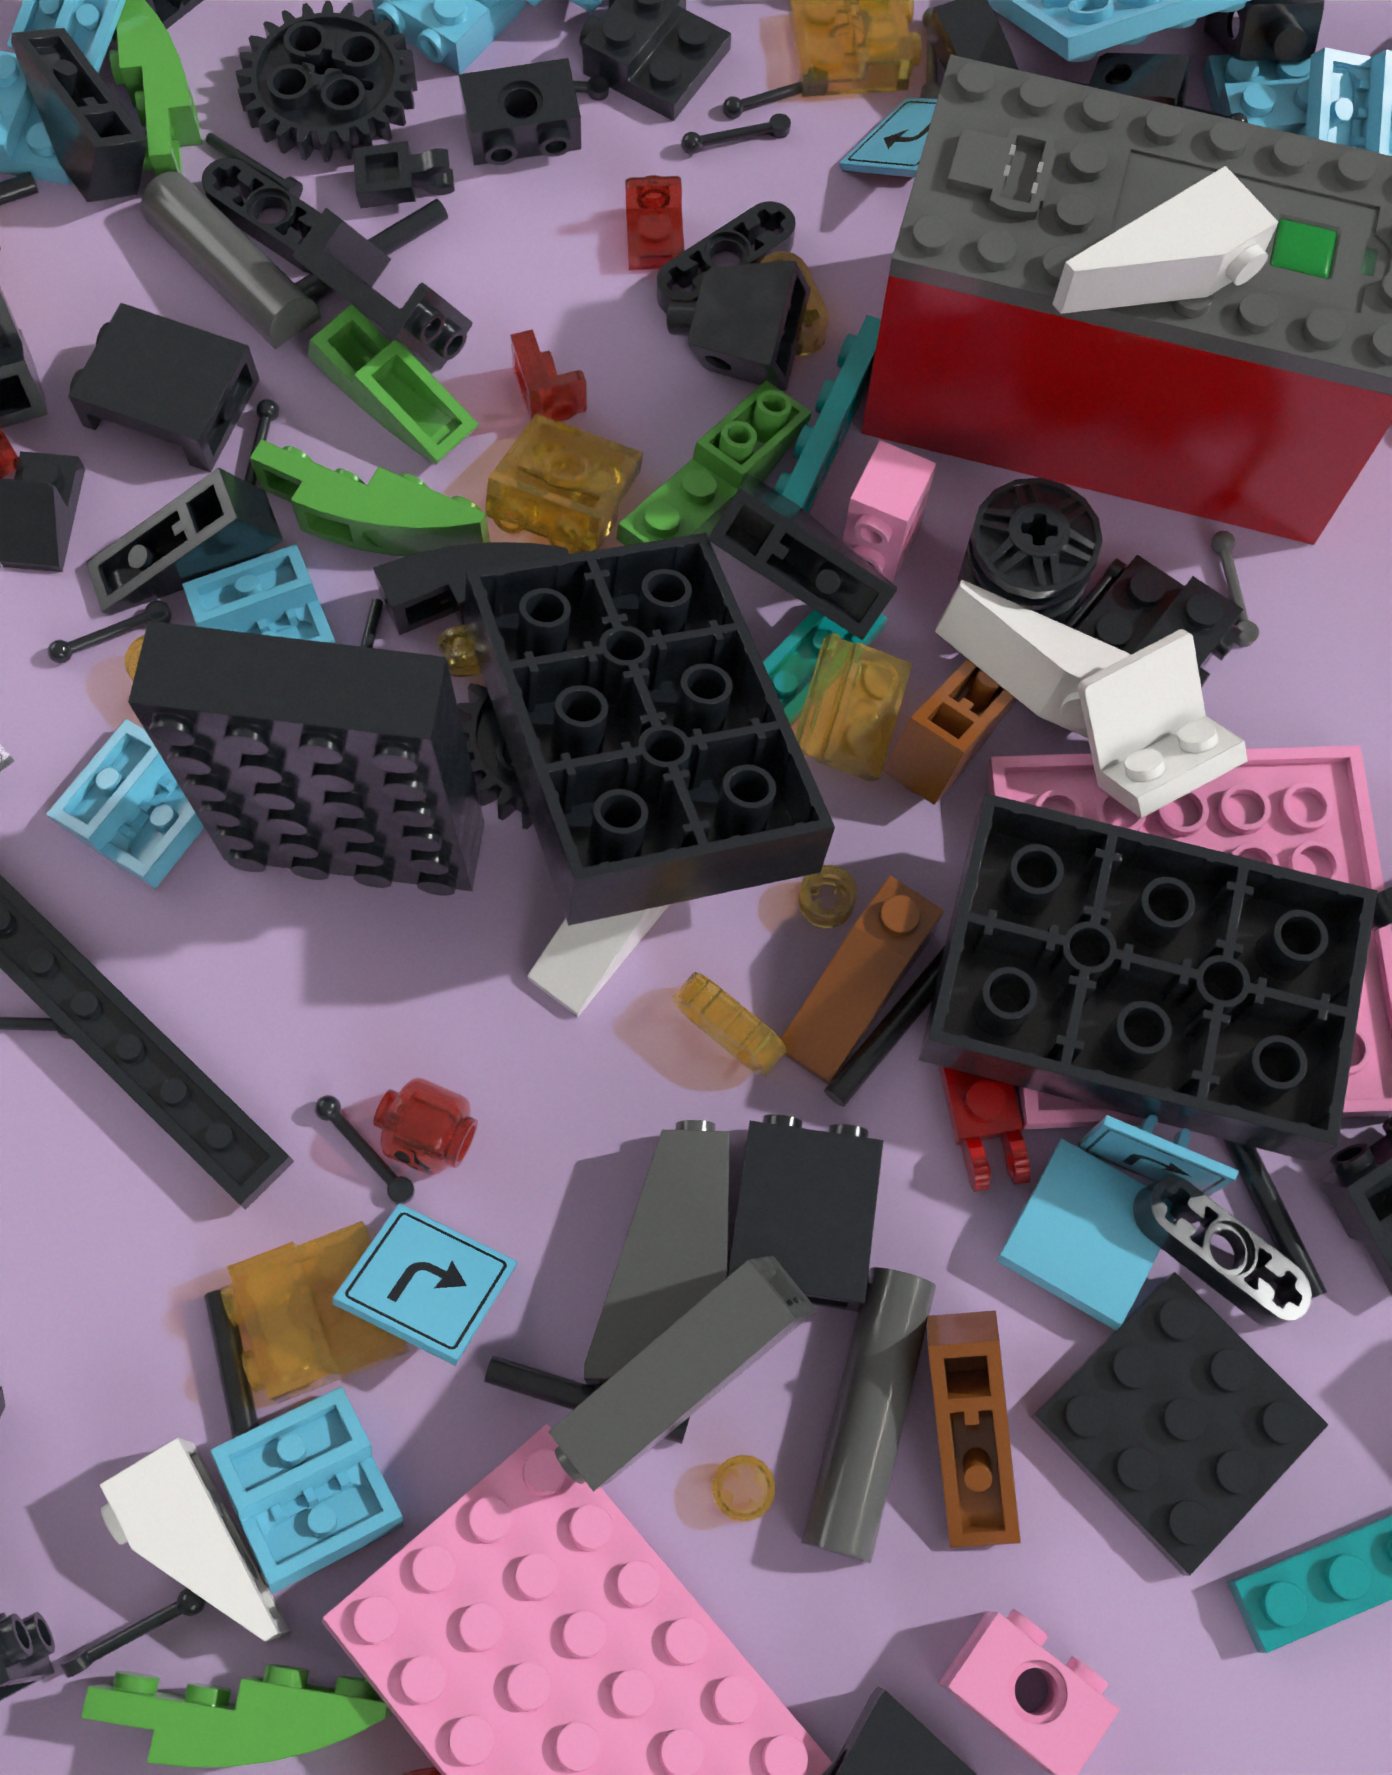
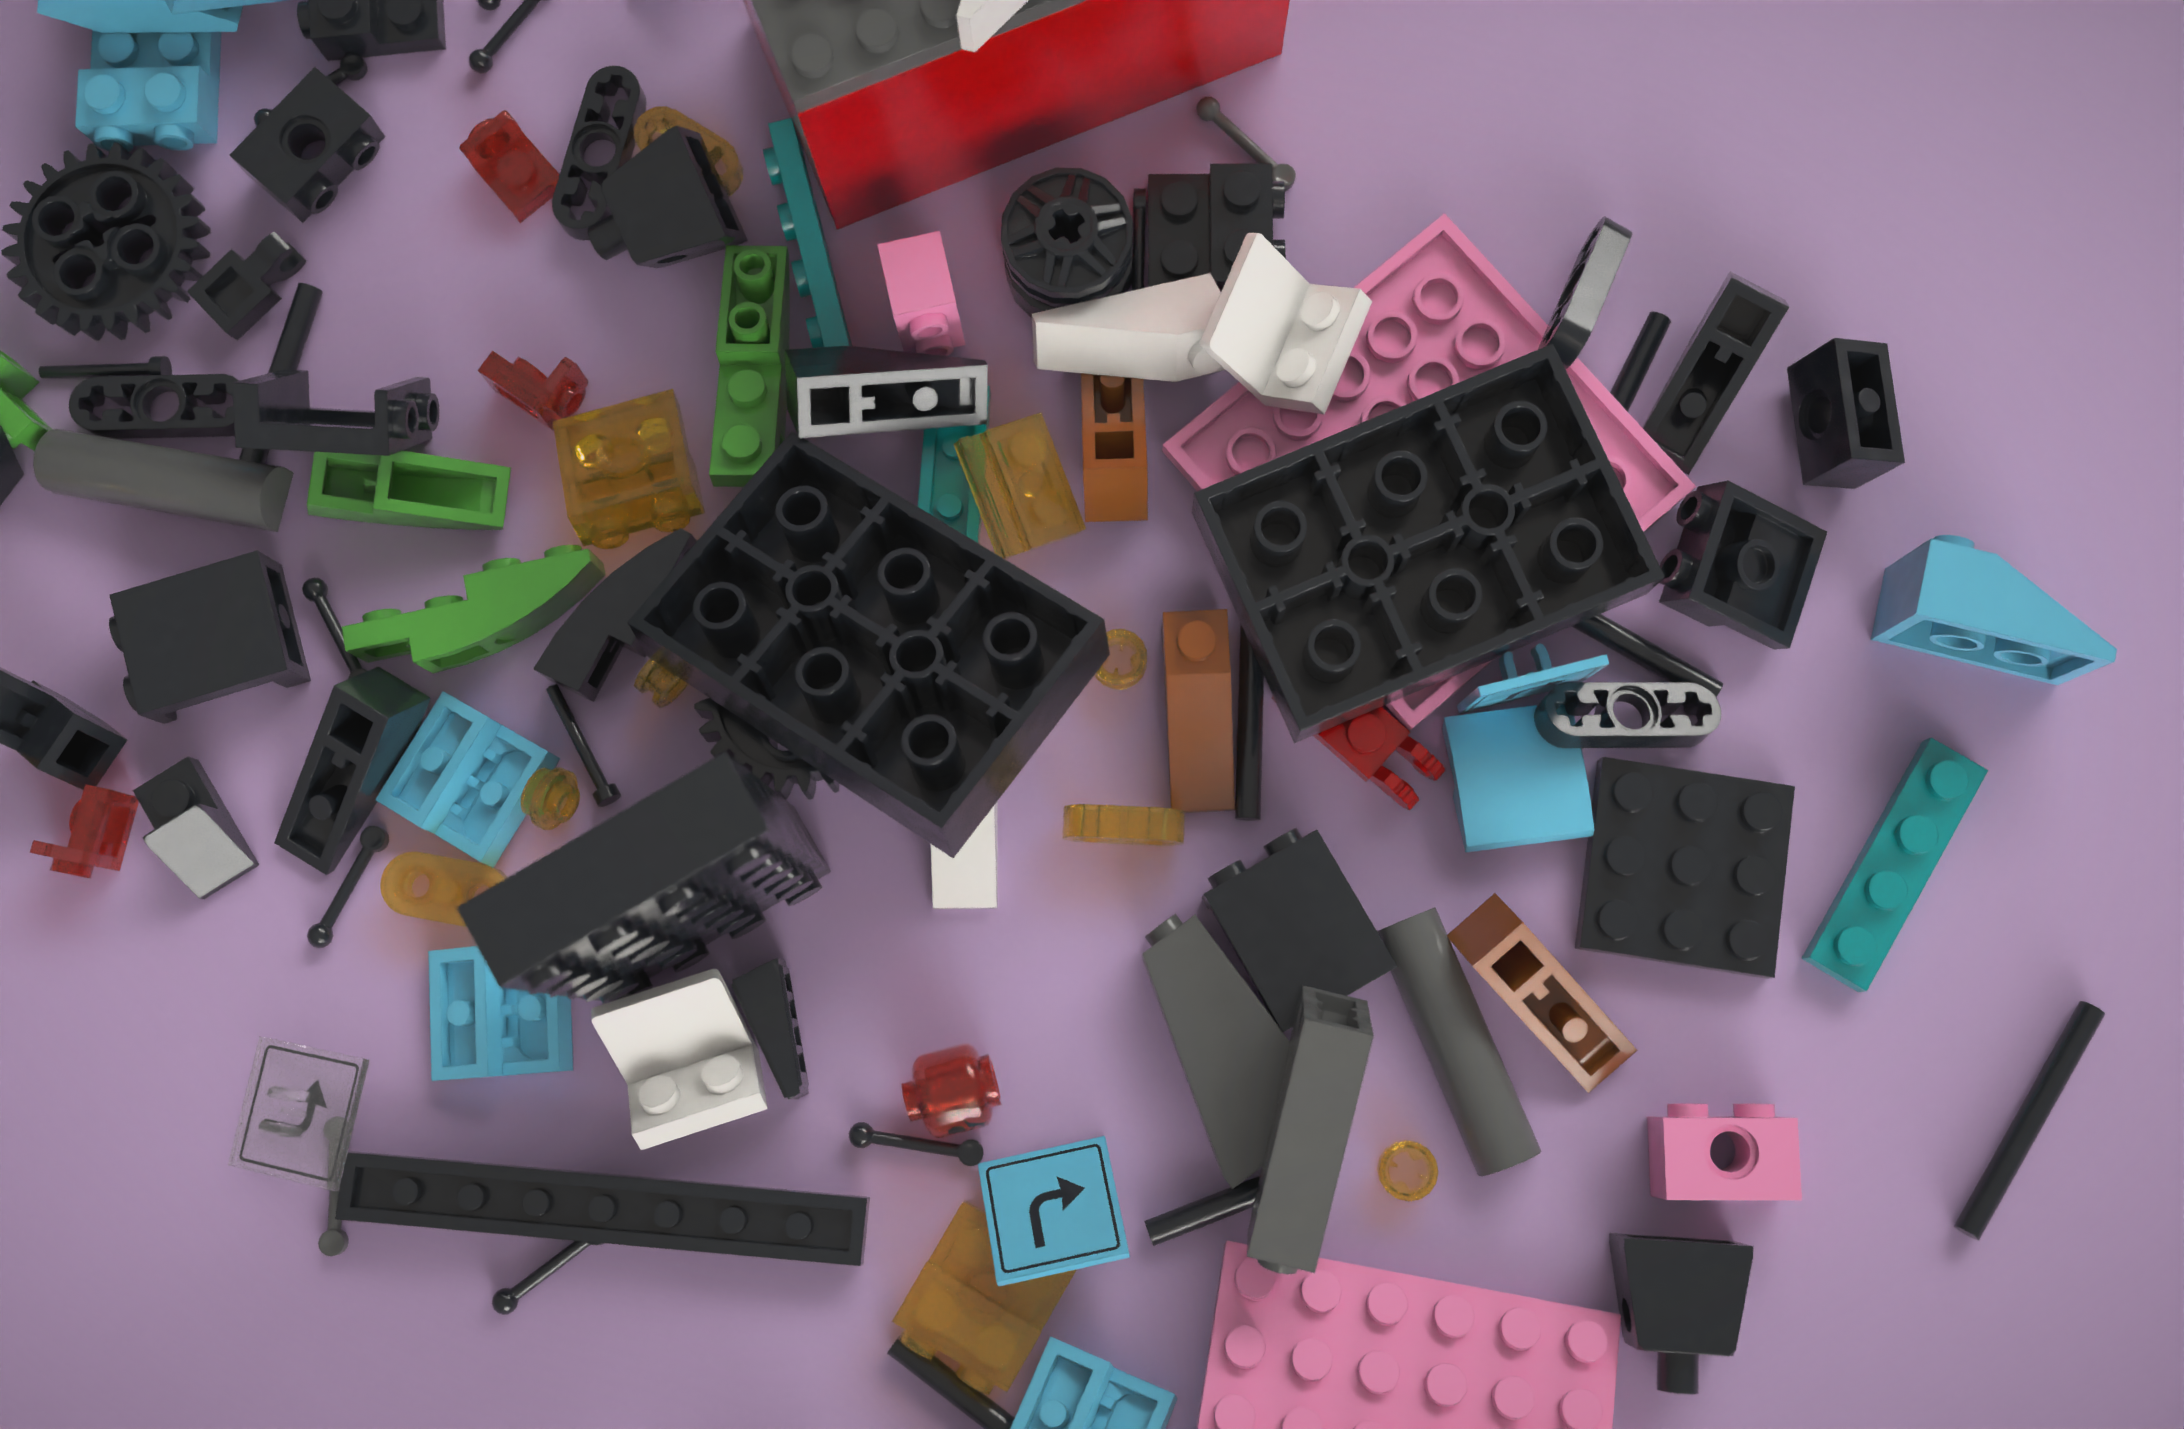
camera: 30 degrees left, 10 degrees up
(242, 932) = (682, 1057): none -> white bracket
(336, 957) = (772, 1014): none -> black slope

